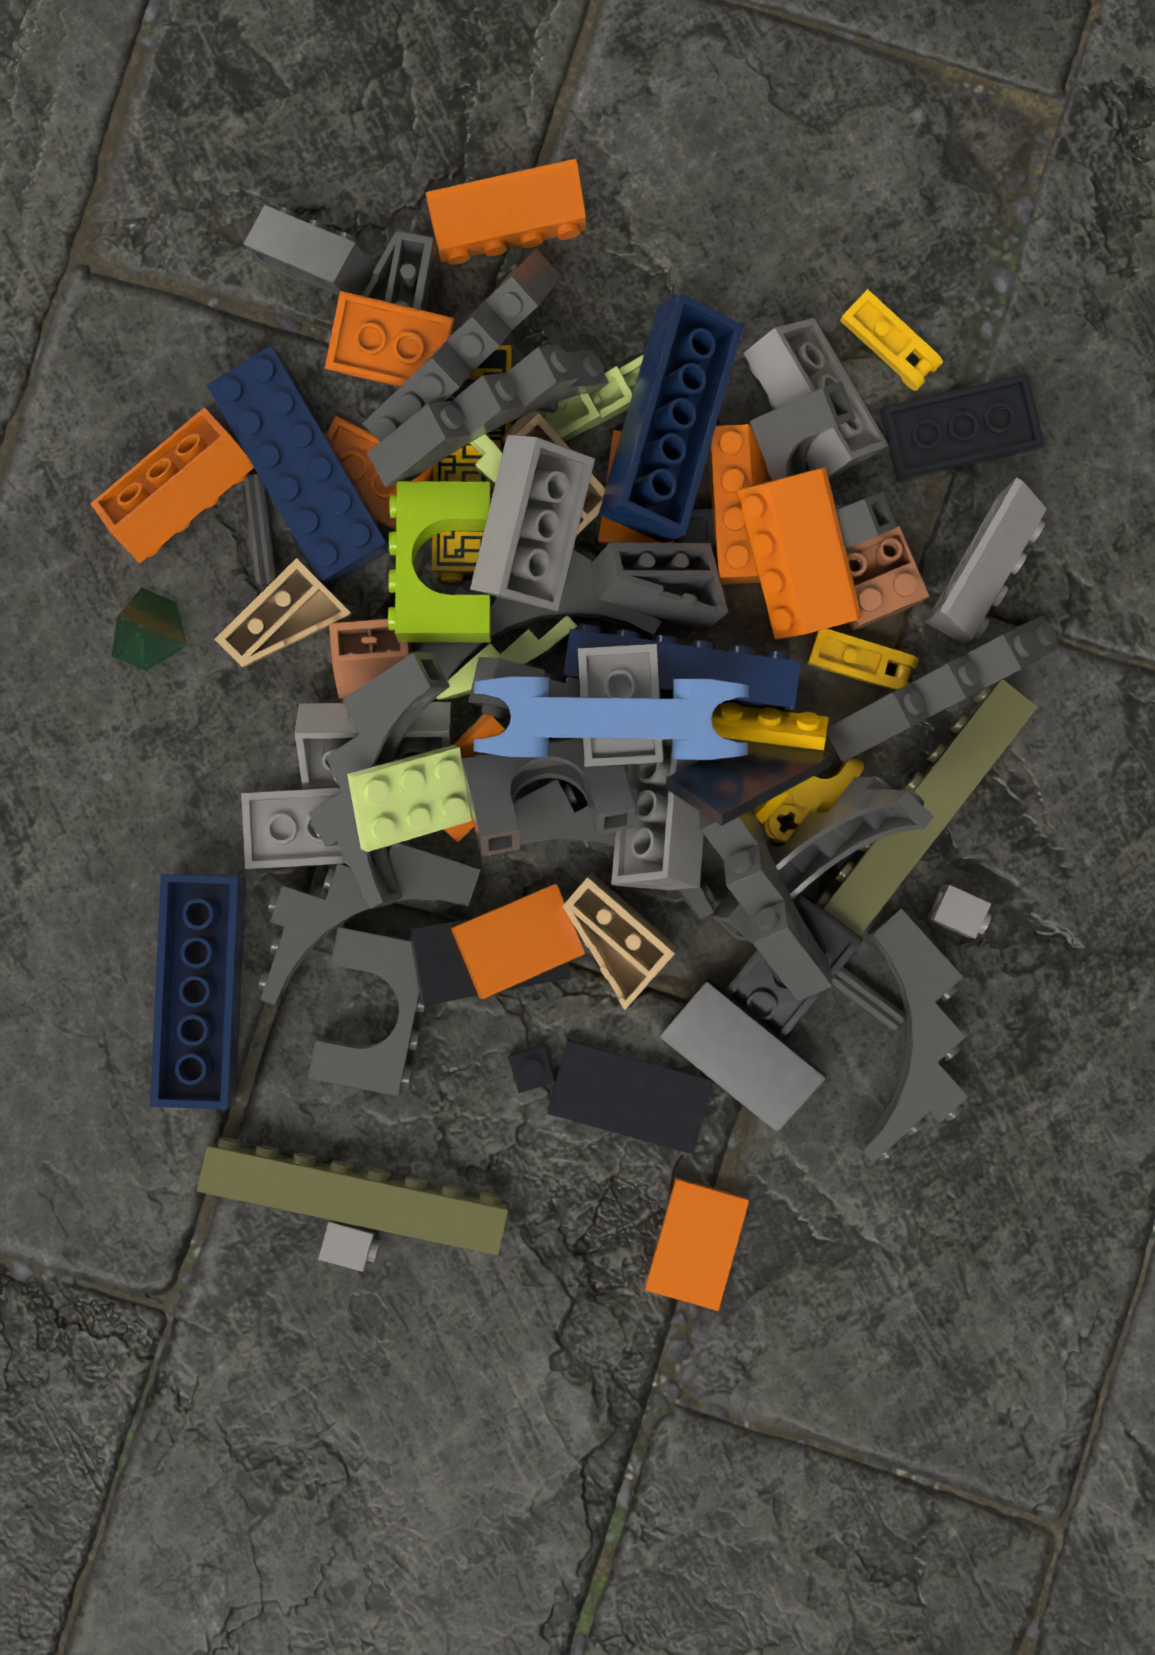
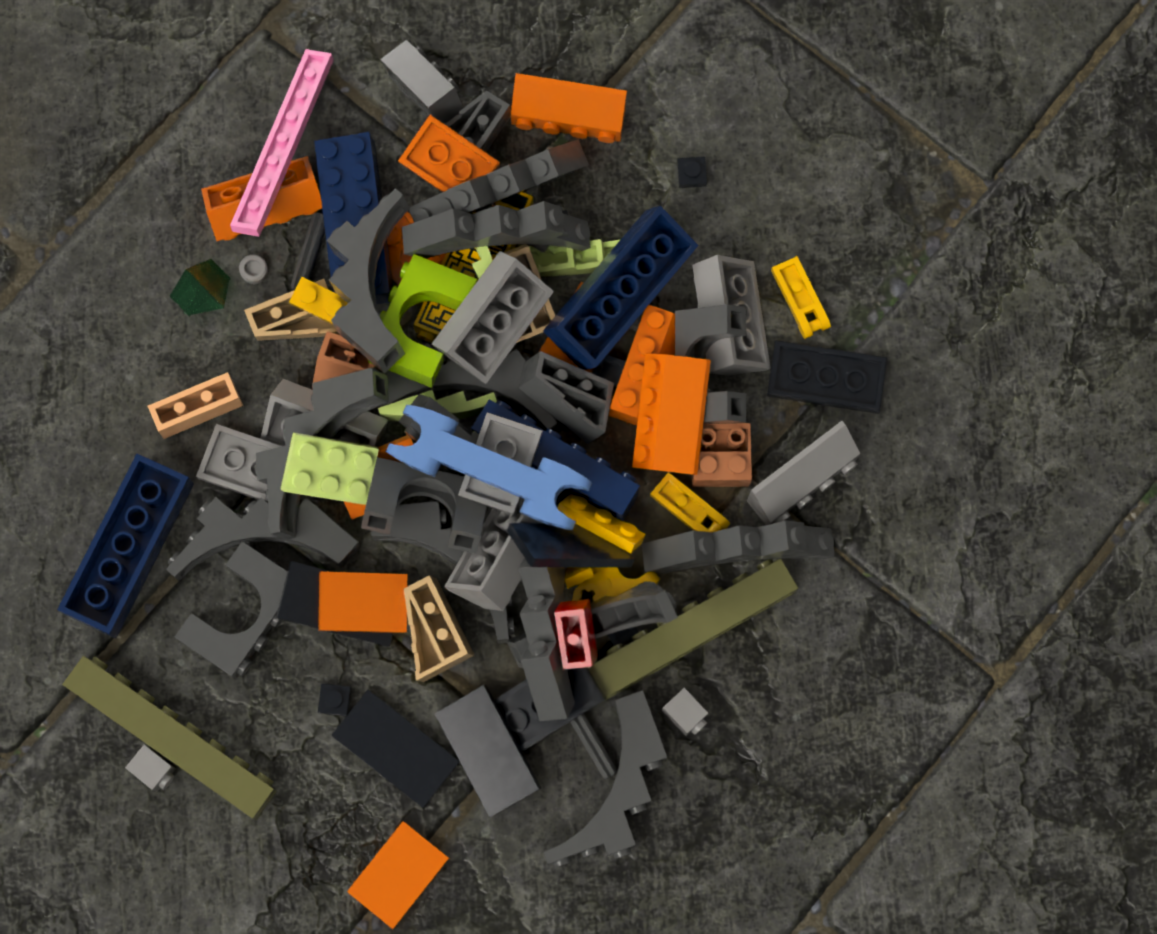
camera: 30 degrees right, 10 degrees down
(167, 405) = (281, 143): none -> bright pink plate
(200, 579) = (253, 269): none -> light grey tile
(205, 782) = (195, 405): none -> light nougat brick
(306, 590) = (316, 300): none -> yellow plate
(339, 549) = (355, 281): none -> dark grey arch
(691, 234) = (691, 172): none -> black plate
(803, 880) = (576, 634): none -> red brick

